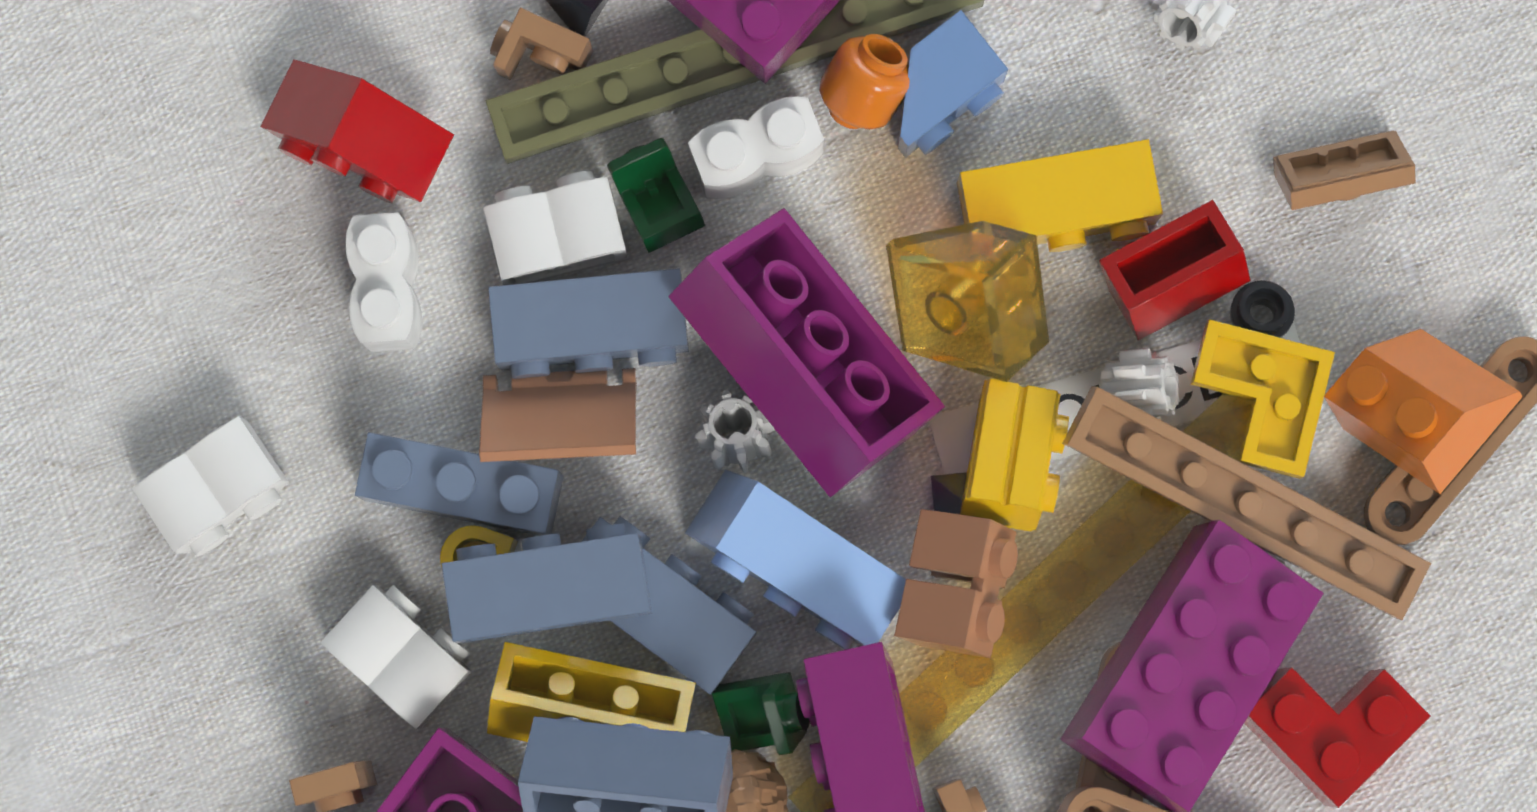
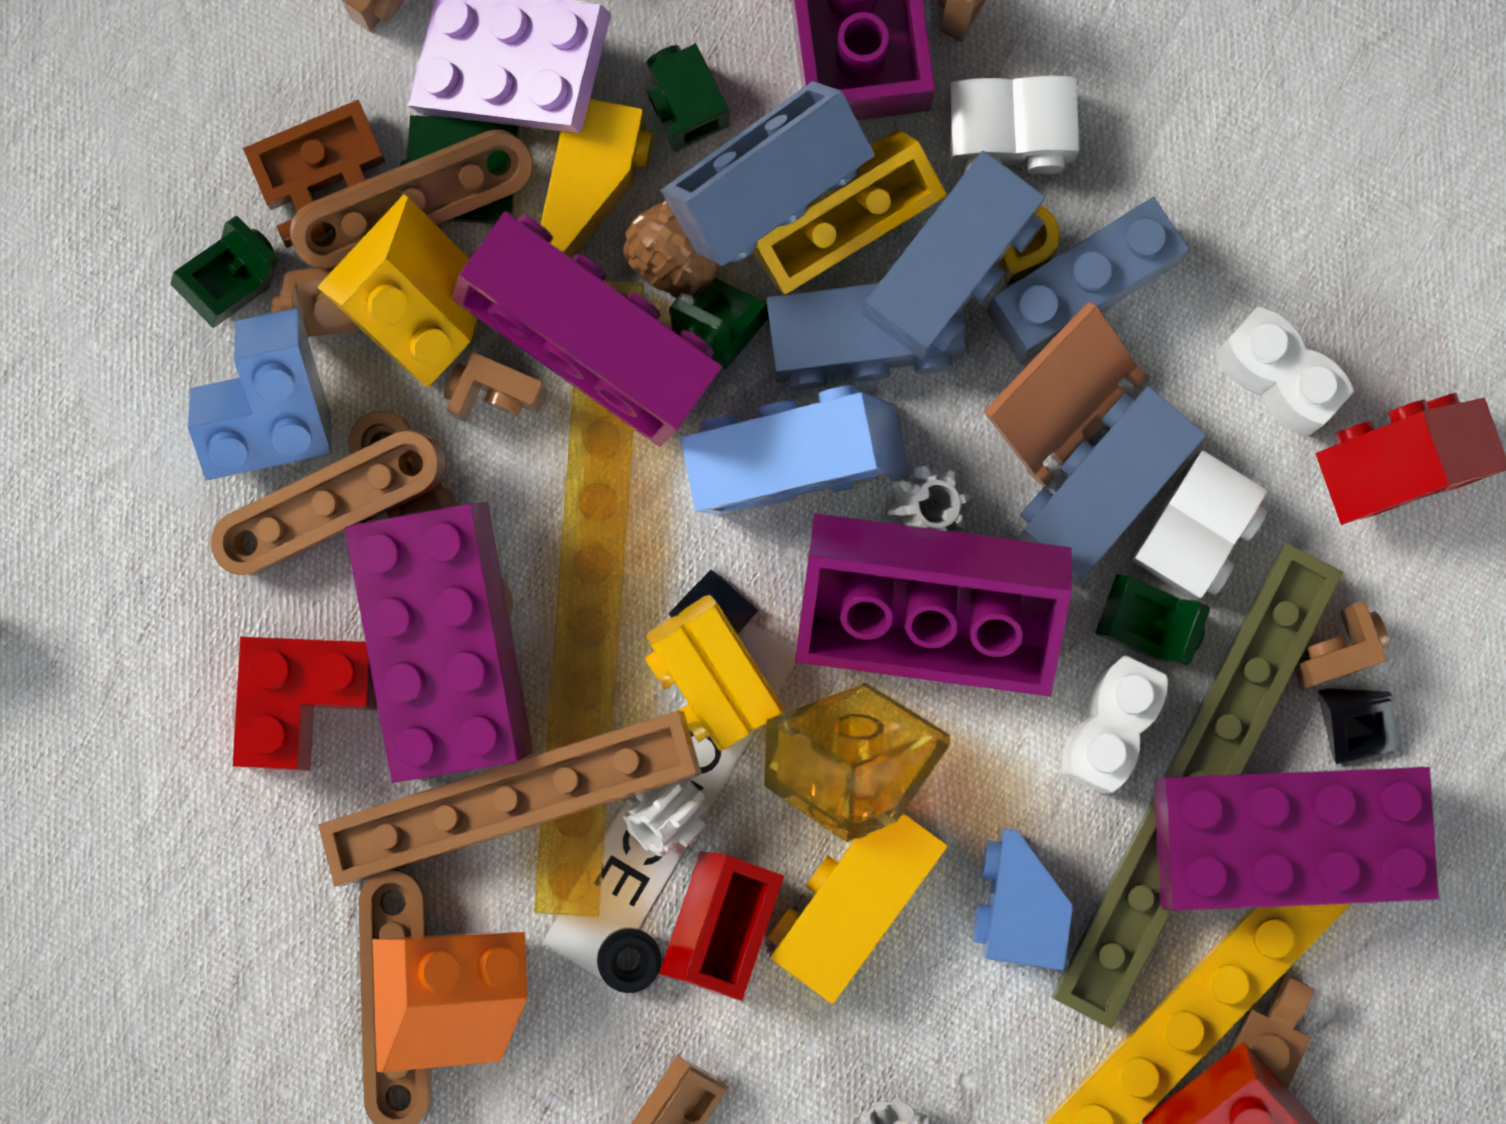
camera: 135 degrees right, 0 degrees up
(211, 487) = (1259, 115): white brick -> none
(865, 82) = (1082, 850): orange head -> none
(963, 551) = (649, 510): nougat piece -> none
(1281, 380) = (566, 914): yellow plate -> none

